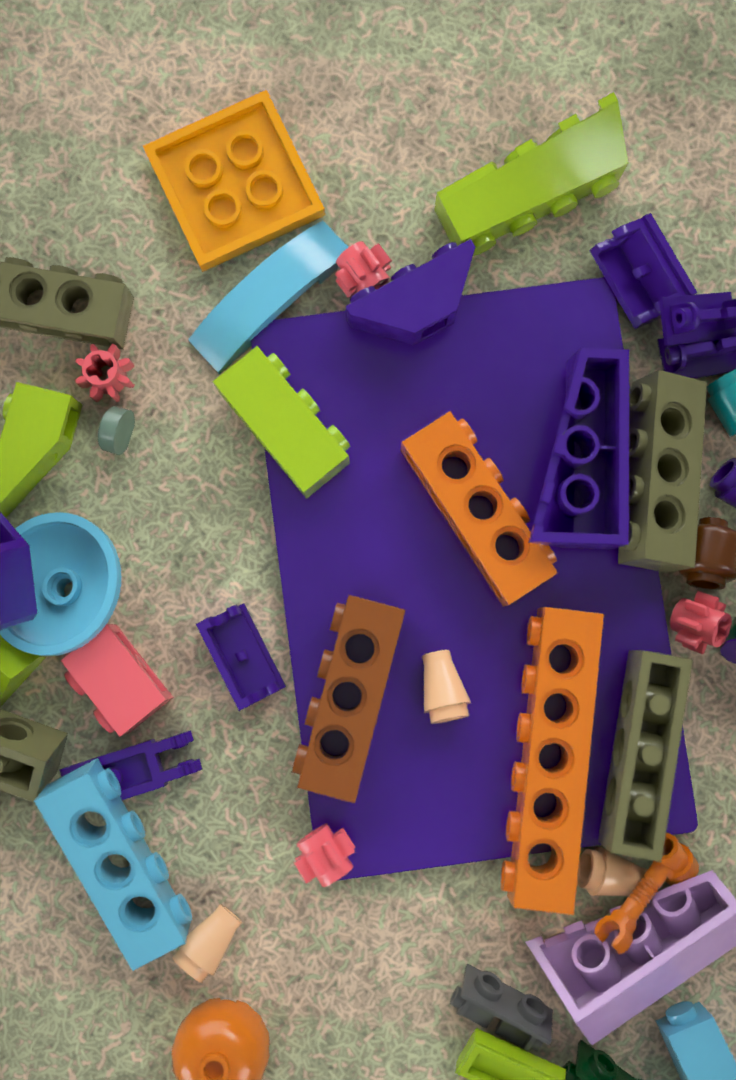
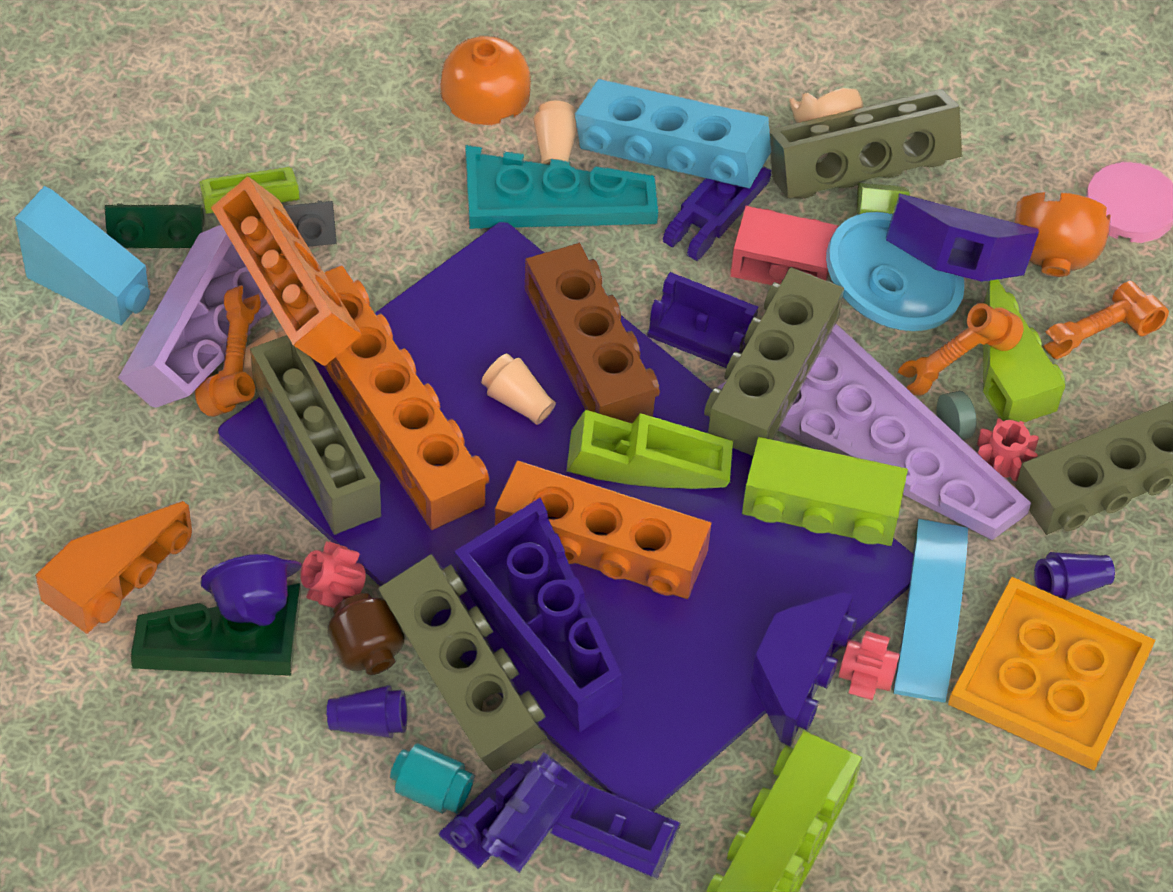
camera: 140 degrees right, 30 degrees down
(21, 453) = (985, 326): none -> orange brick
(151, 241) = (1073, 574): none -> dark purple cone
(153, 583) = (775, 360): none -> olive brick
(189, 495) = (866, 413): none -> lavender wing
(257, 883) = (554, 193): none -> teal wing
(324, 855) = (517, 224): coral gear -> none
(387, 554) = (648, 453): none -> lime slope
(589, 920) = (286, 271): none -> orange brick

